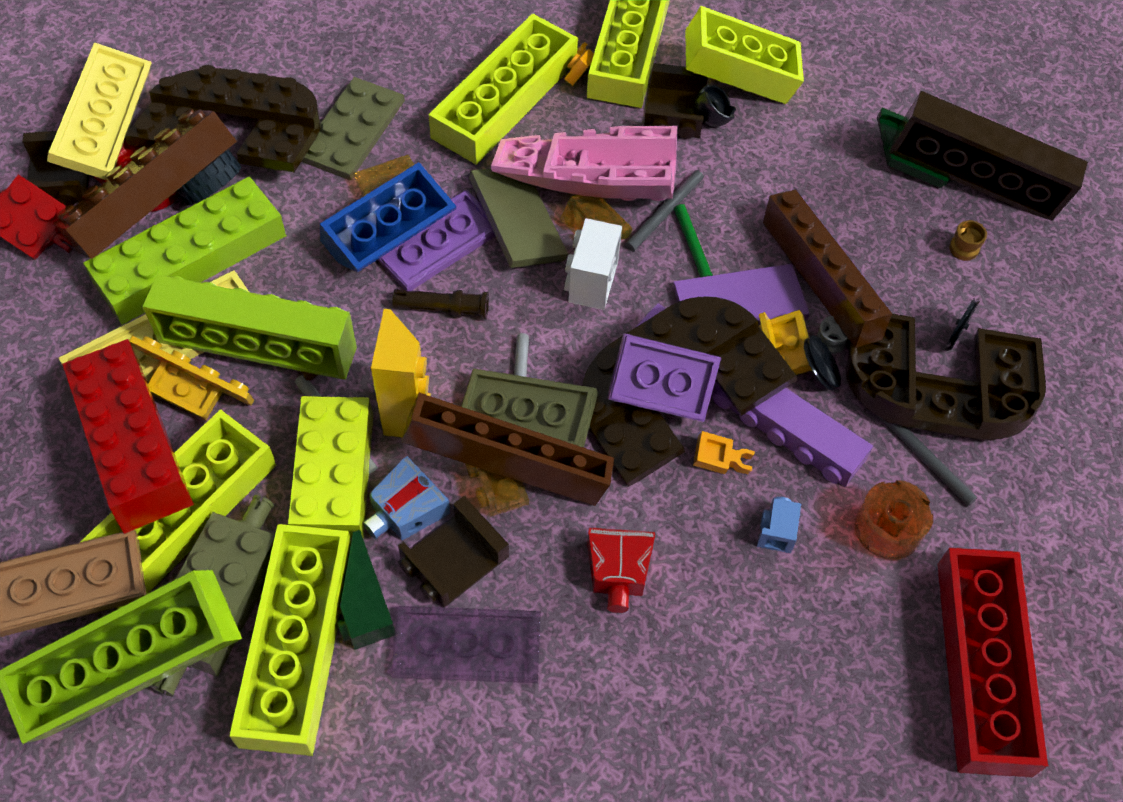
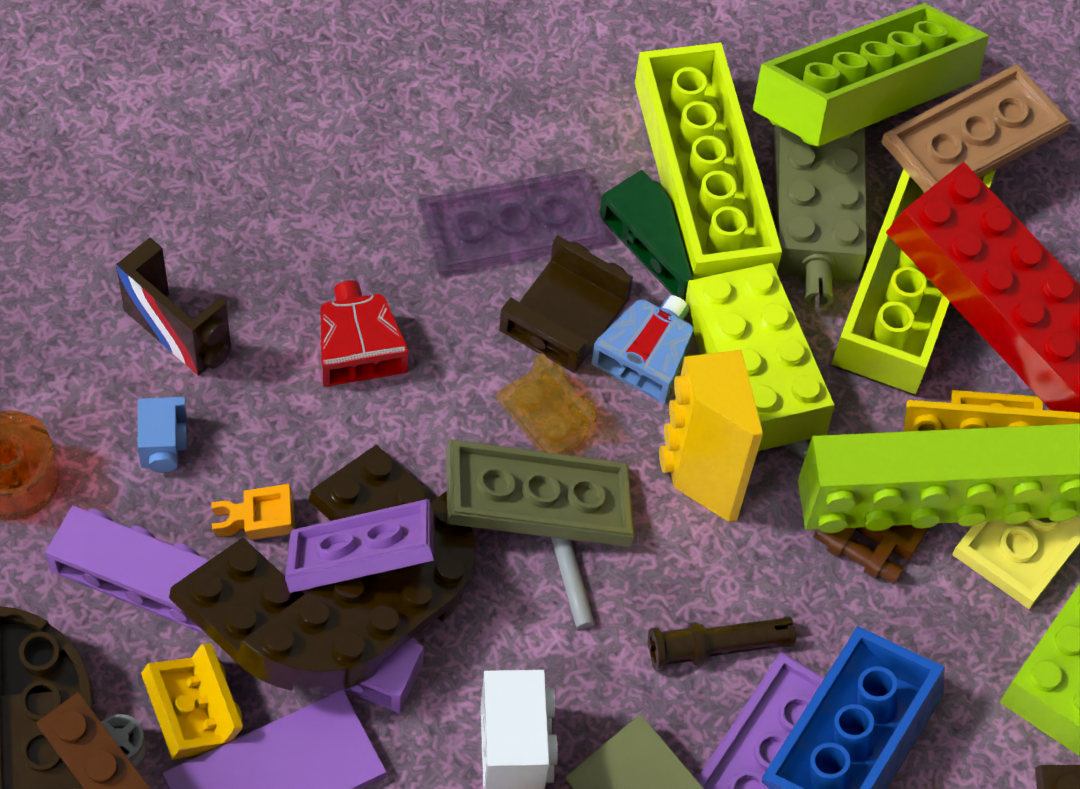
camera: 160 degrees right, 0 degrees up
(507, 449) = (539, 398): reddish brown brick -> none
(769, 599) = (144, 294): none -> dark brown panel
(822, 362) = (132, 675): black wheel -> none

